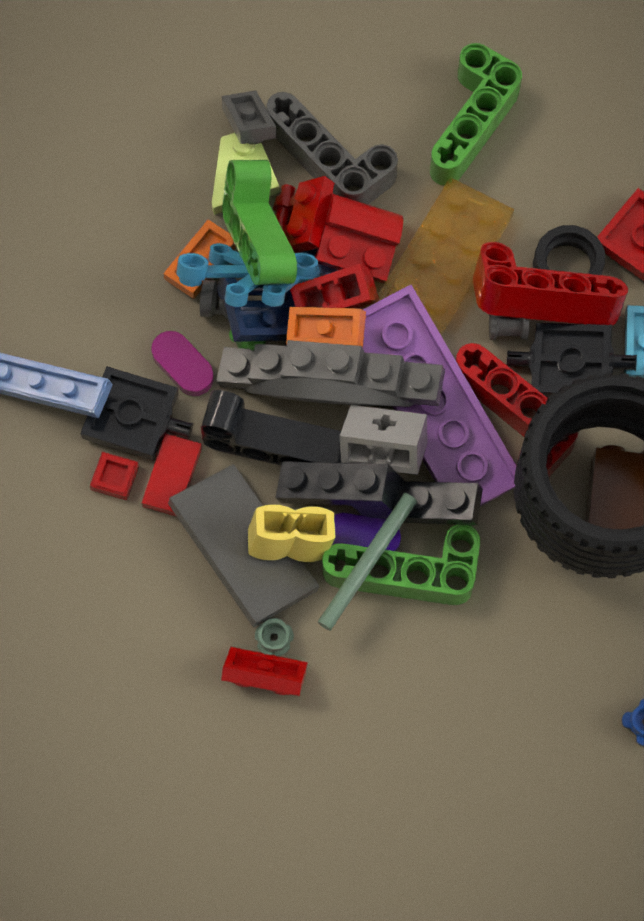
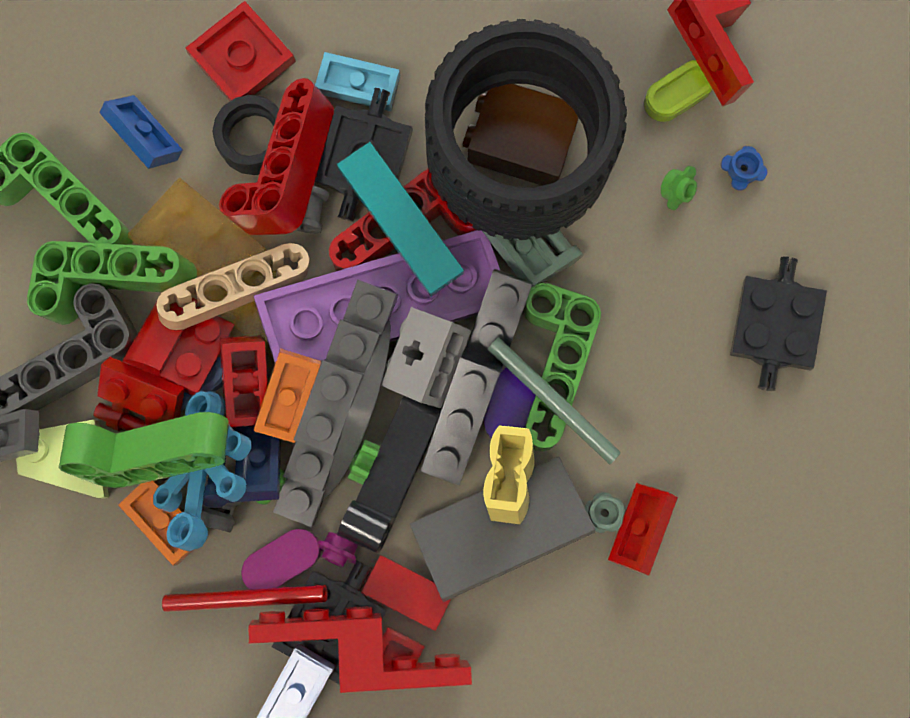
camera: 80 degrees left, 10 degrees up
(114, 435) = (361, 650): none -> red bracket
(144, 338) = (245, 598): none -> red piece
(197, 405) = (337, 550): none -> magenta plate
(282, 407) = (363, 462): none -> bright green plate
(409, 134) = (80, 259): none -> bright green beam
(424, 266) = (231, 279): none -> tan beam
(492, 777) = (778, 323): none -> black plate
(501, 530) = (533, 258): none -> sand green plate
(511, 397) = (400, 219): none -> teal tile
(549, 168) = (141, 131): none -> blue plate
(609, 658) = (679, 186): none -> bright green plate

